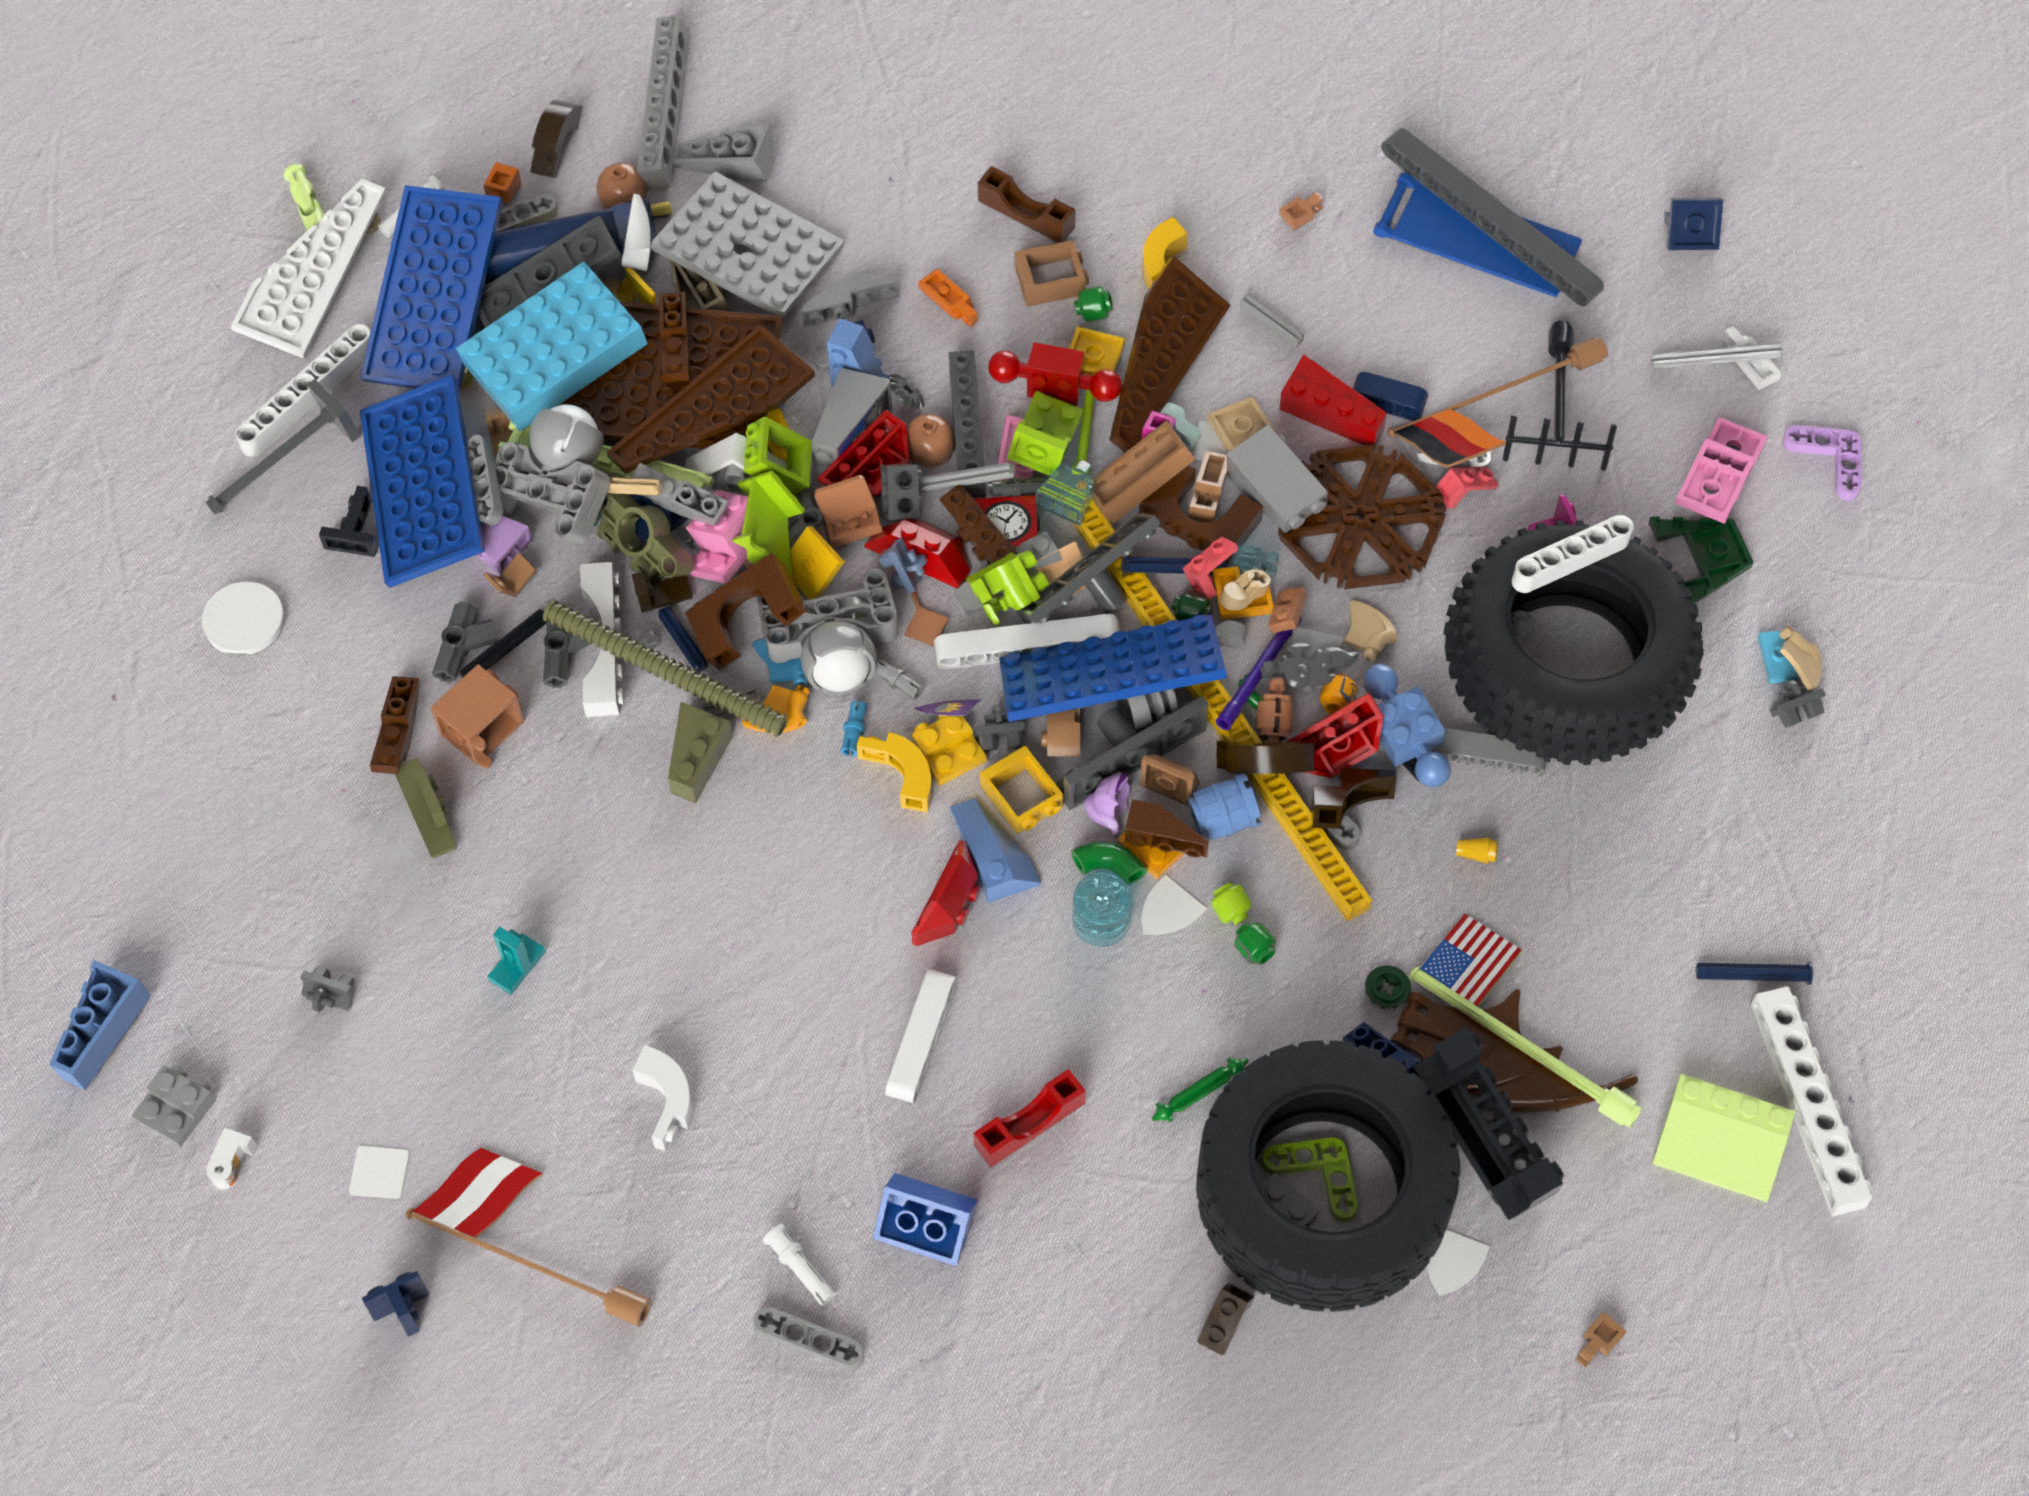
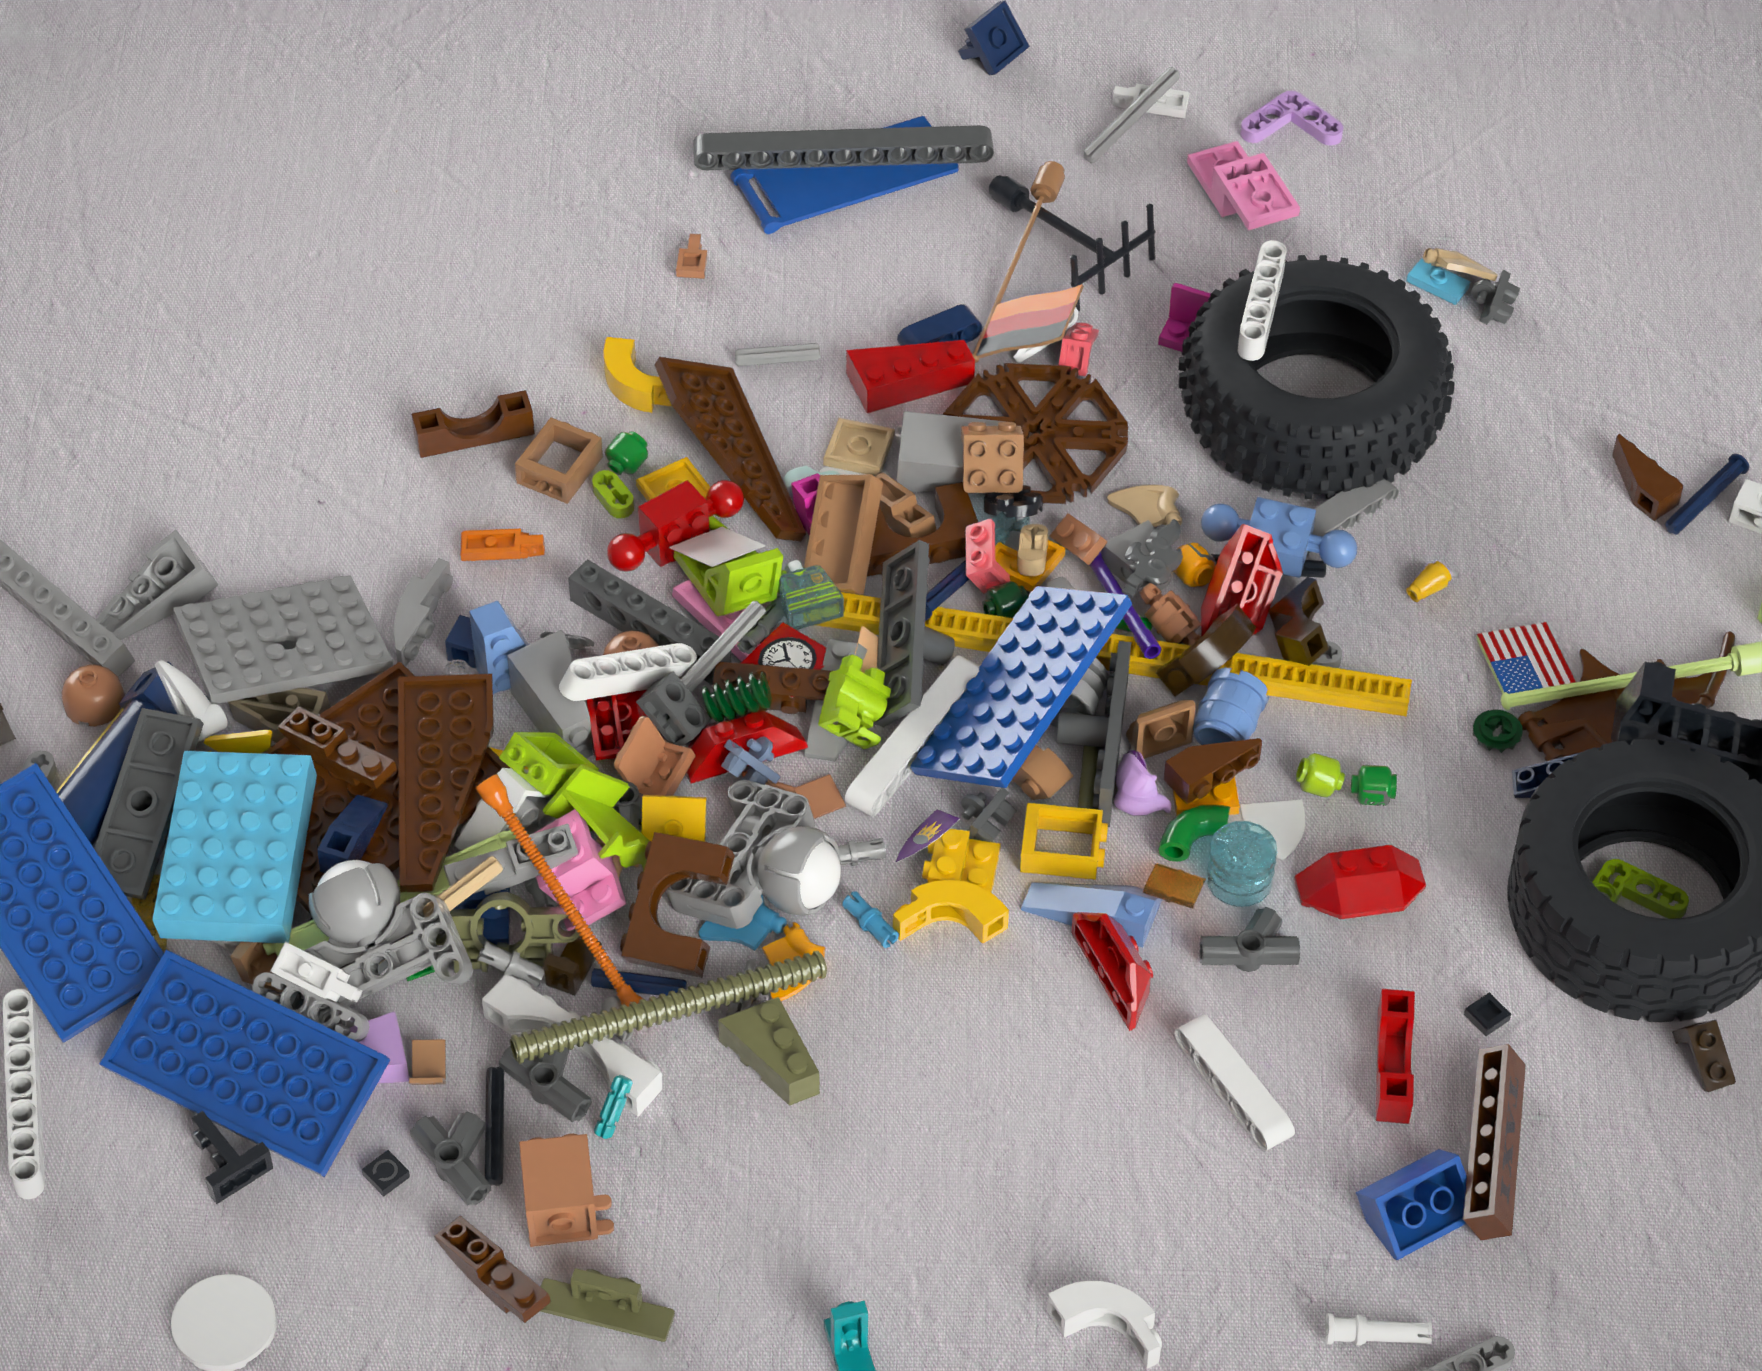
camera: 50 degrees left, 10 degrees down
(330, 412) = (78, 1082): dark grey tile -> none
(420, 616) = (385, 1173): none -> black tile
(500, 462) = (314, 974): none -> white hinge
(568, 696) = (613, 1106): none -> teal axle
(618, 395) = (350, 832): none -> dark blue slope
(619, 557) = (511, 963): none -> light grey pin
(693, 442) = (495, 795): none -> orange hose
(883, 440) = (624, 671): none -> white beam
(940, 516) = (737, 698): none -> dark green piece
(1014, 1230) = (1494, 1142): none -> reddish brown brick
(1048, 882) = (1174, 885): none -> clear orange piece
(1052, 323) = (618, 491): none -> lime beam
(1056, 411) = (717, 546): none -> white sticker
(1056, 965) = (1253, 946): none -> dark grey piece
(1130, 1153) = (1487, 1014): none -> black tile
(1166, 998) = (1361, 882): none -> red wedge
(1199, 1089) = (1473, 922): green wheel -> none
(1273, 547) = (1014, 504): none -> black plate
(1285, 503) = (992, 457): none -> medium nougat bracket
(1714, 547) = (1300, 238): dark green wing -> none
(1720, 927) = (1647, 483): none -> reddish brown slope

